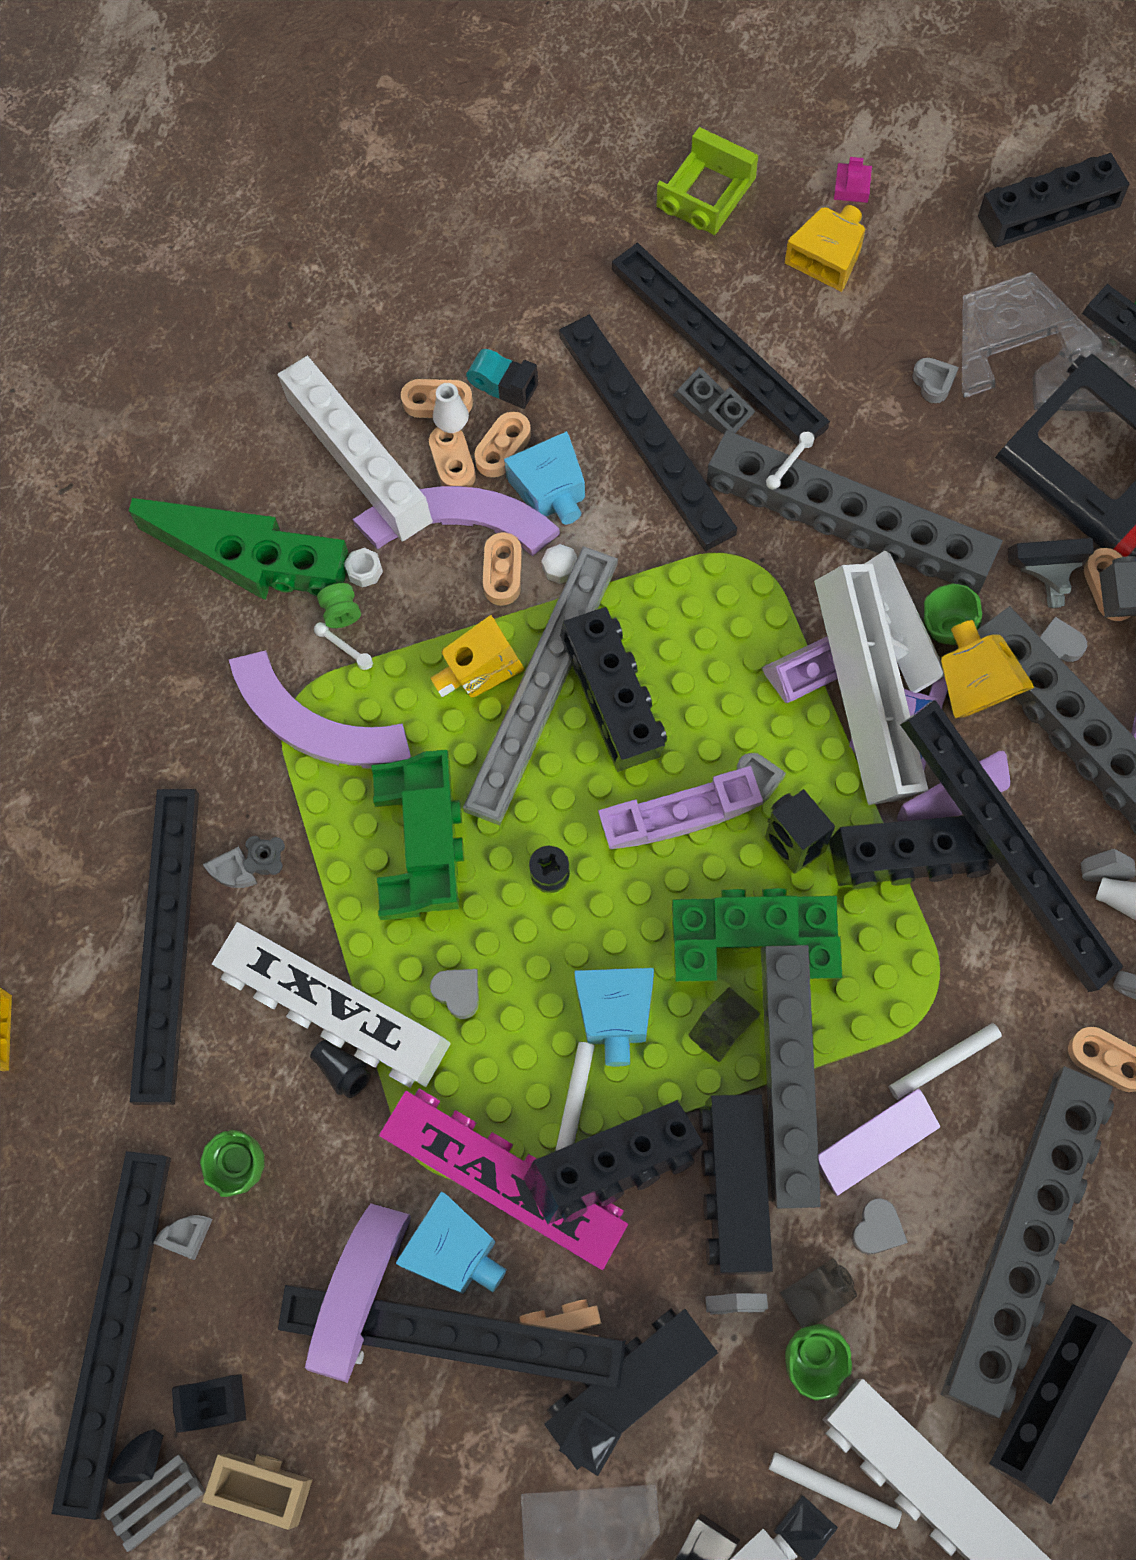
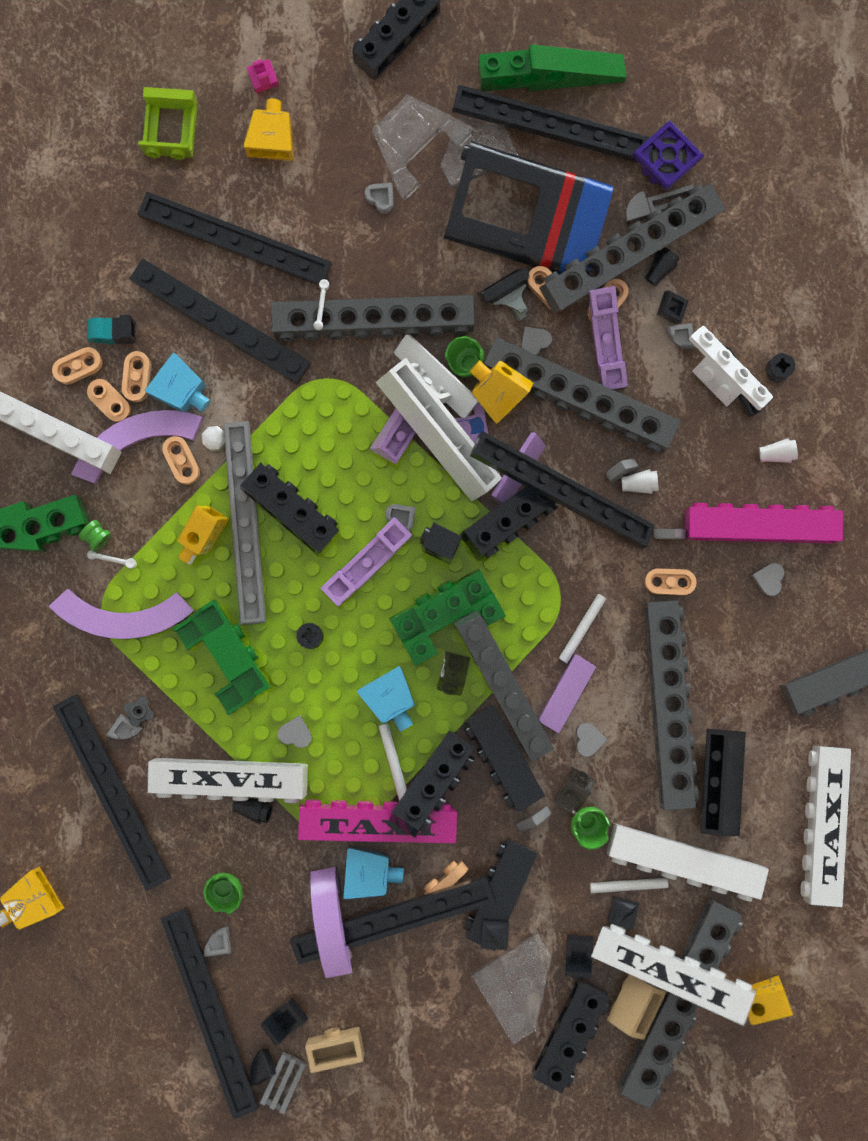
camera: 35 degrees left, 15 degrees up
(363, 567) = (95, 502): white tile -> none
(449, 409) = (92, 375): white cone -> none
(712, 404) = (253, 282): dark grey slope -> none

